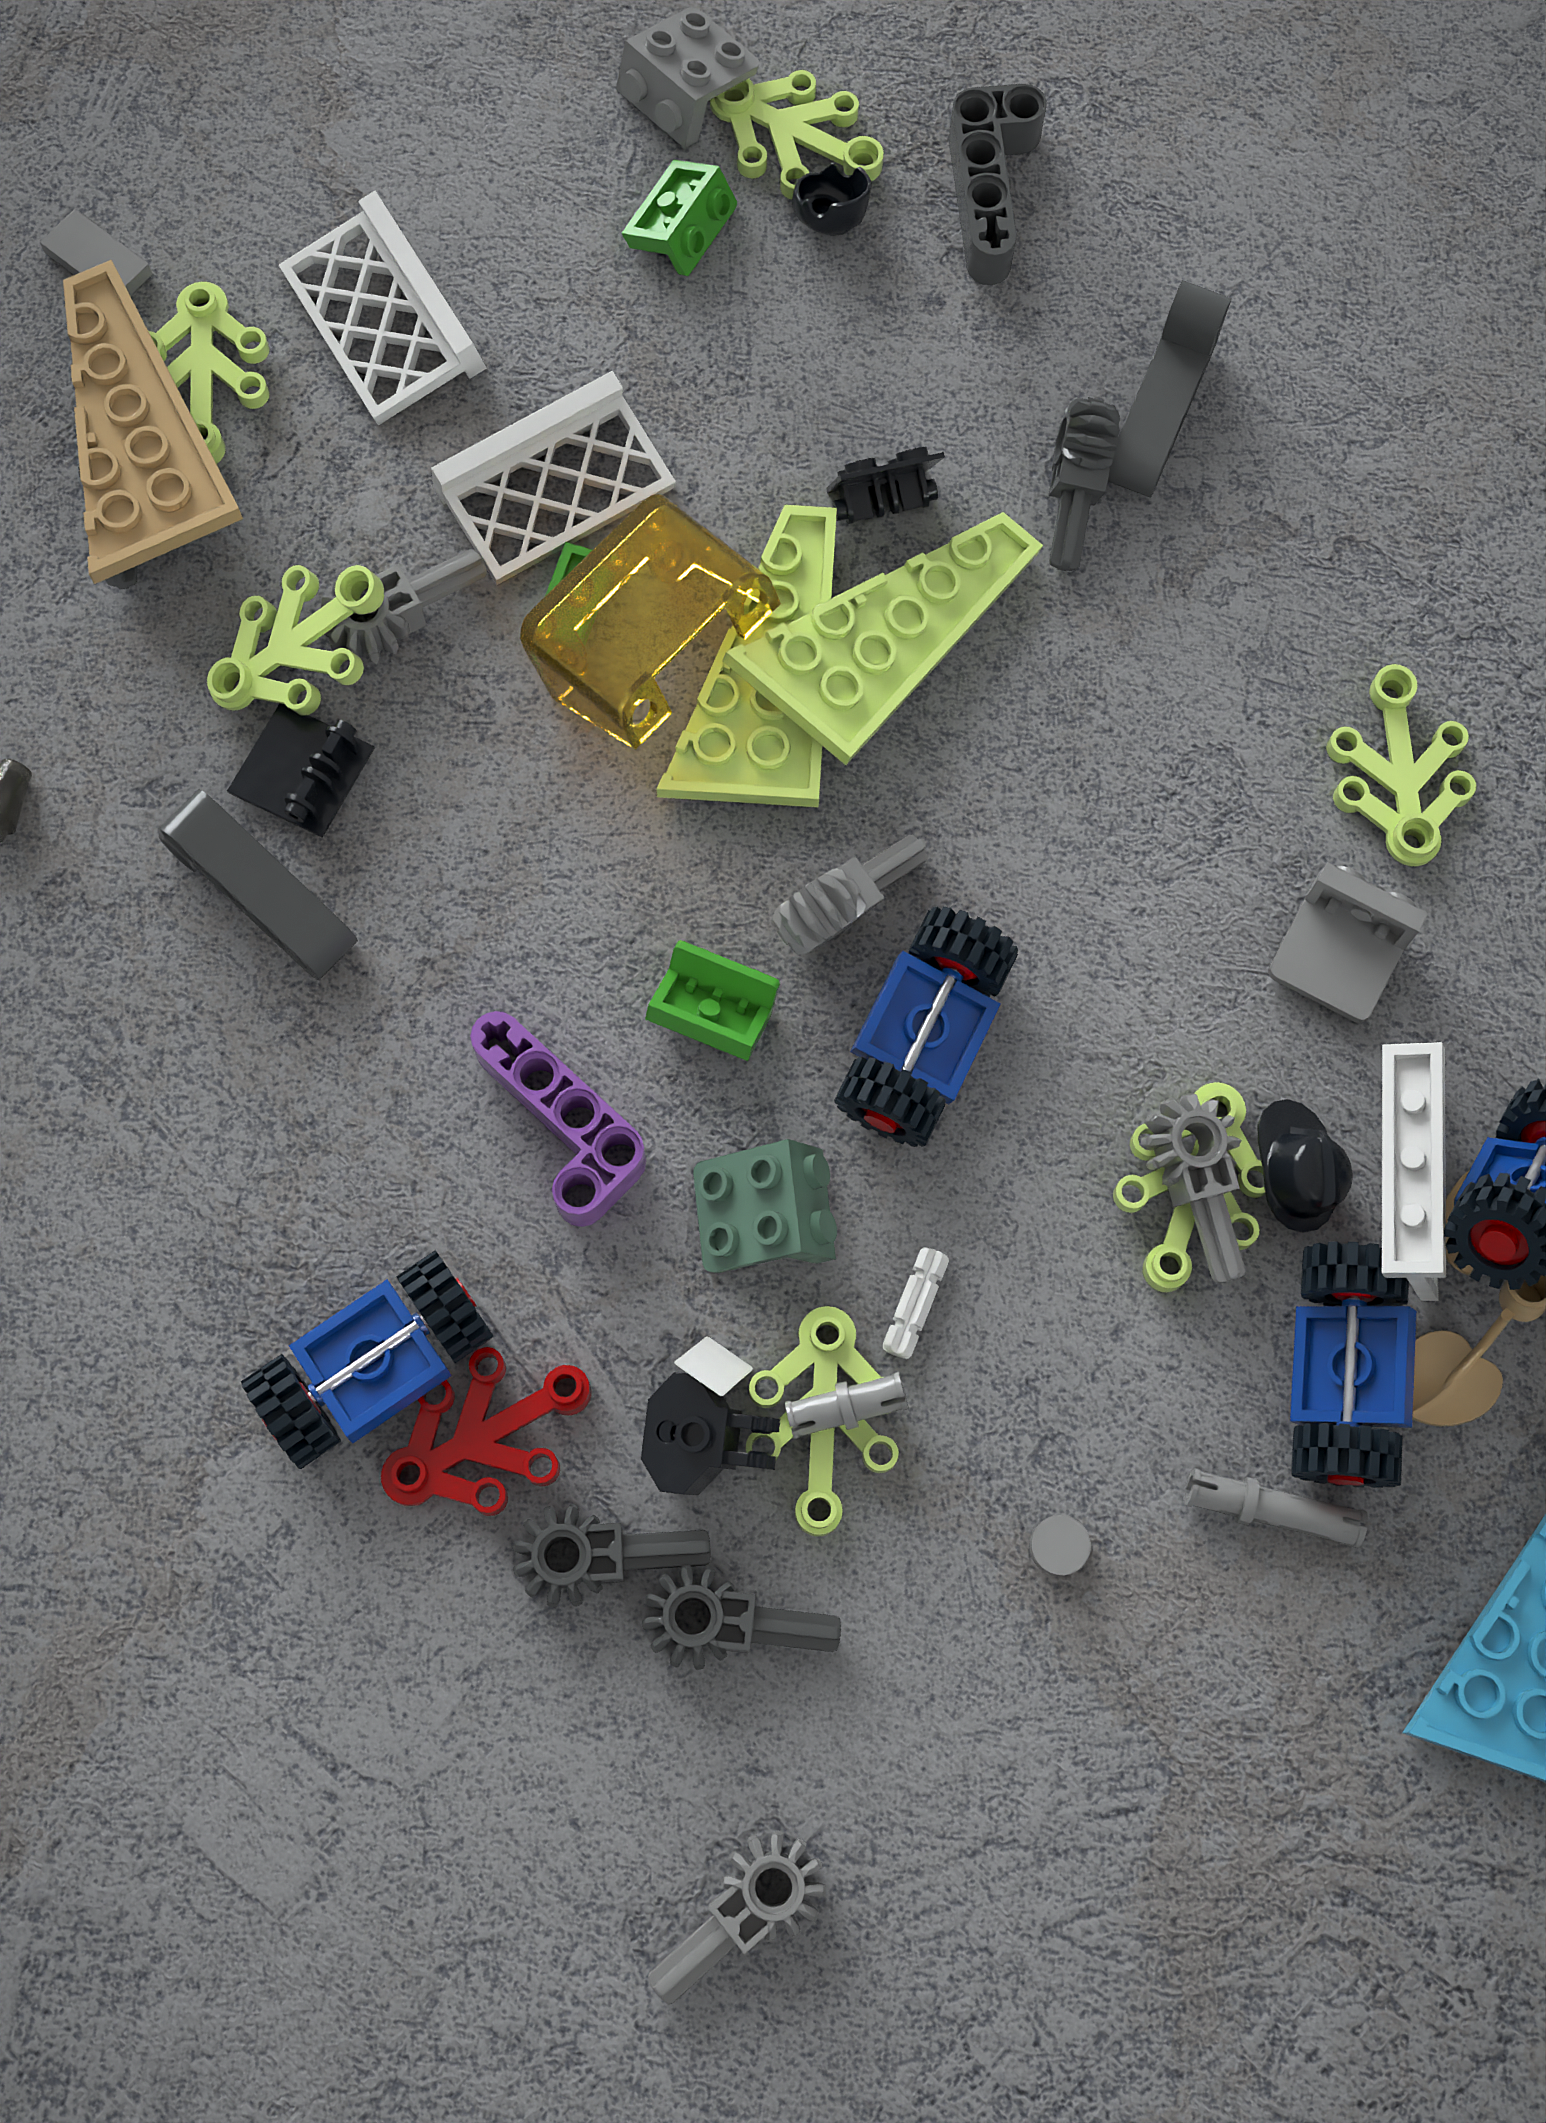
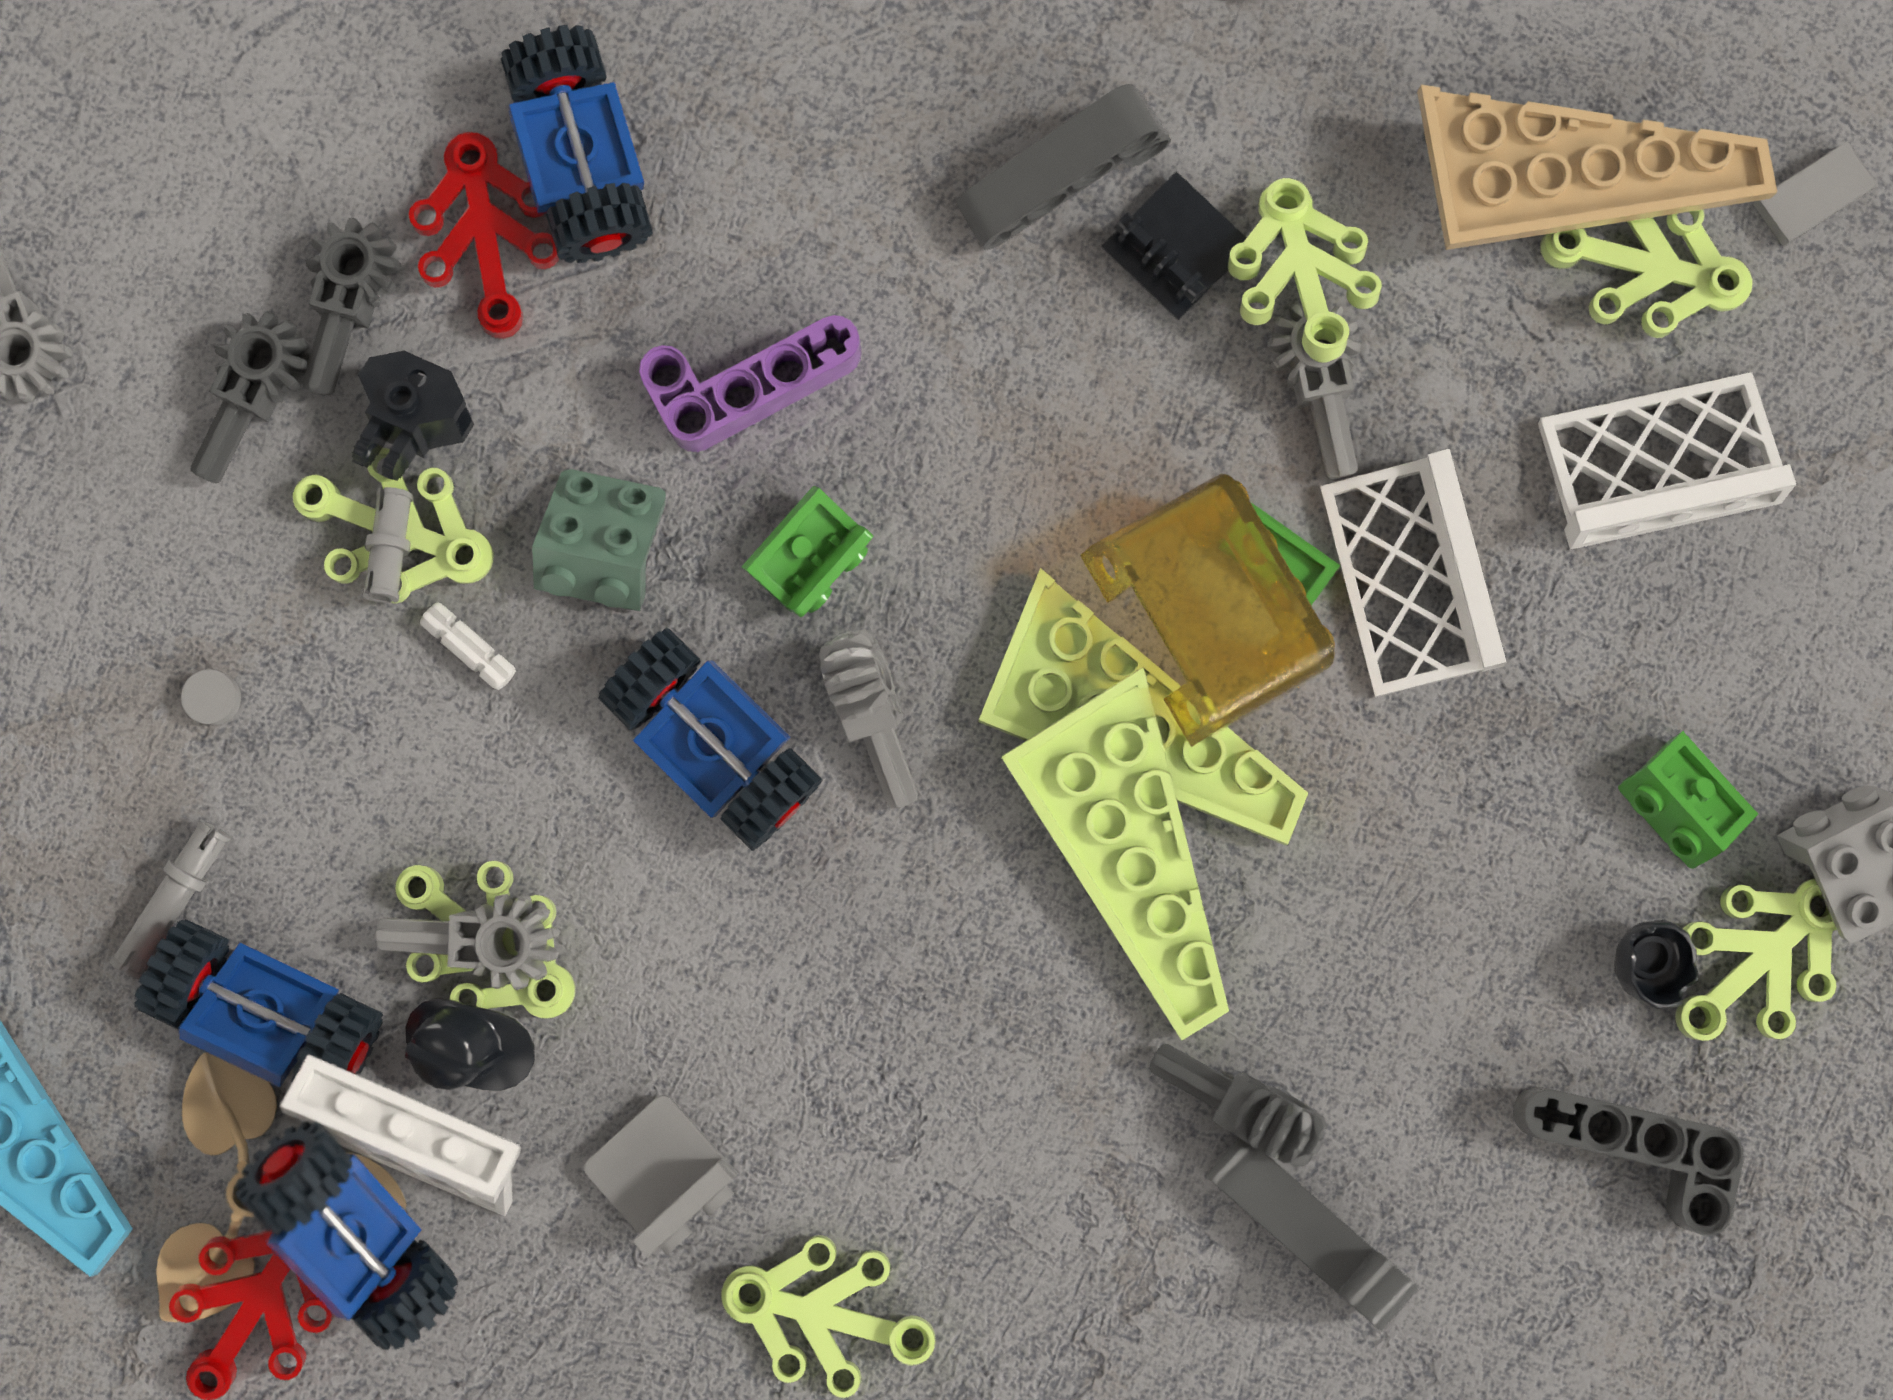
camera: 115 degrees right, 10 degrees up
(713, 1366) = (465, 441): white sticker -> none
(906, 470) = (1307, 878): black hinge -> none

